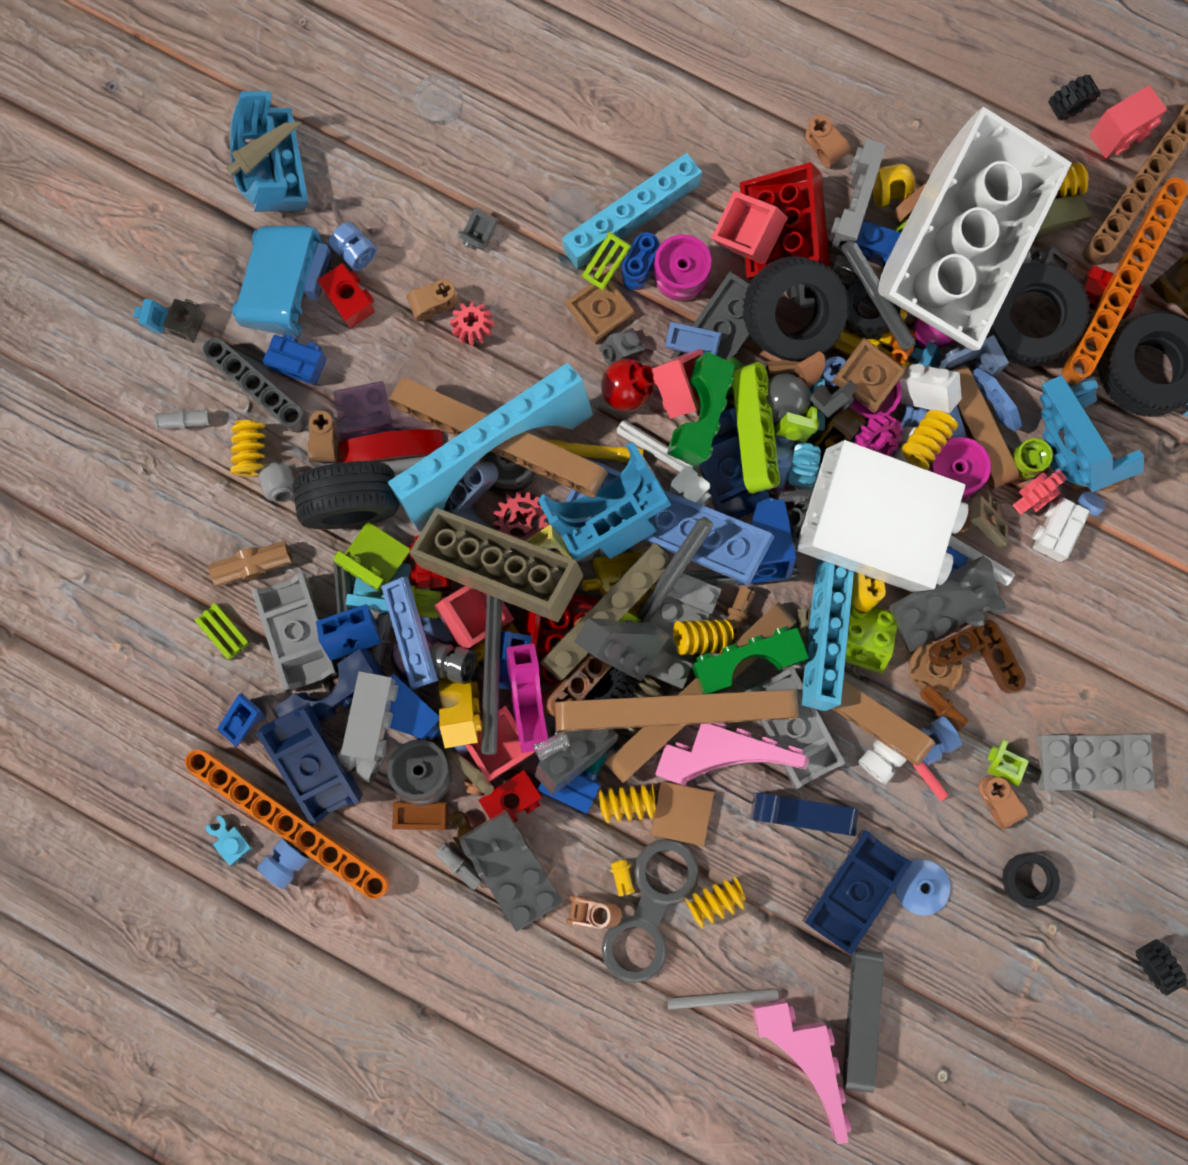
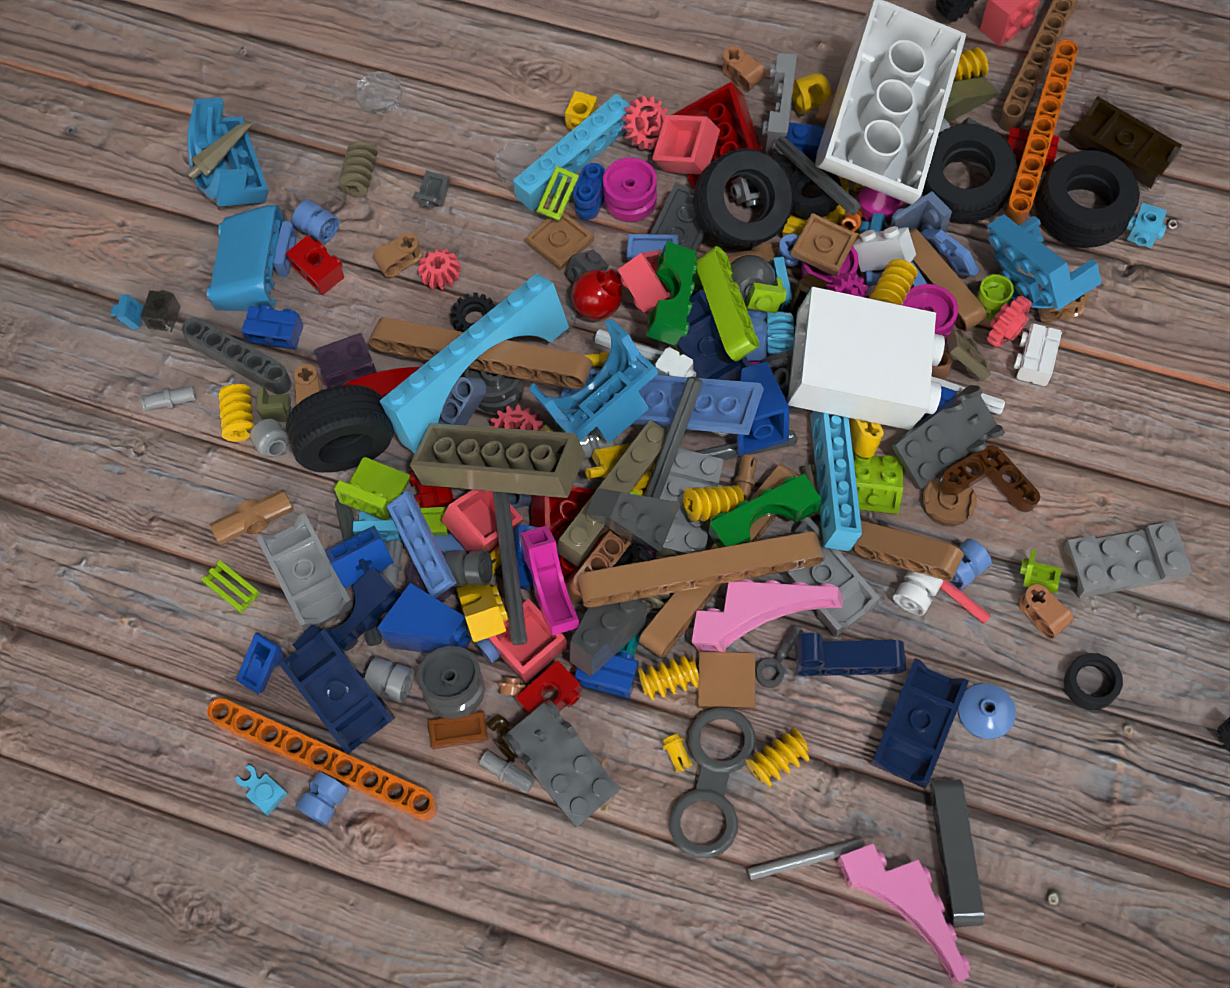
camera: 10 degrees left, 15 degrees down
(285, 447) = (273, 406): none -> olive panel
(369, 716) = (392, 623): light grey brick -> none
(402, 190) = (357, 168): none -> dark tan piece
(468, 769) = (503, 669): dark tan bar -> none
(497, 369) = (467, 306): none -> black tyre
(552, 745) = (582, 618): clear pin -> none
(588, 913) = (648, 792): nougat piece -> none
(647, 154) = (579, 109): none -> yellow brick
(711, 192) = (644, 123): none -> coral gear
(741, 794) = (782, 652): none -> dark grey piece
(812, 368) = (769, 246): nougat tile -> none
(828, 402) = (802, 266): dark grey bracket -> none
(943, 707) = (963, 531): dark orange axle -> none
(1091, 502) = (1066, 328): medium blue tile -> none

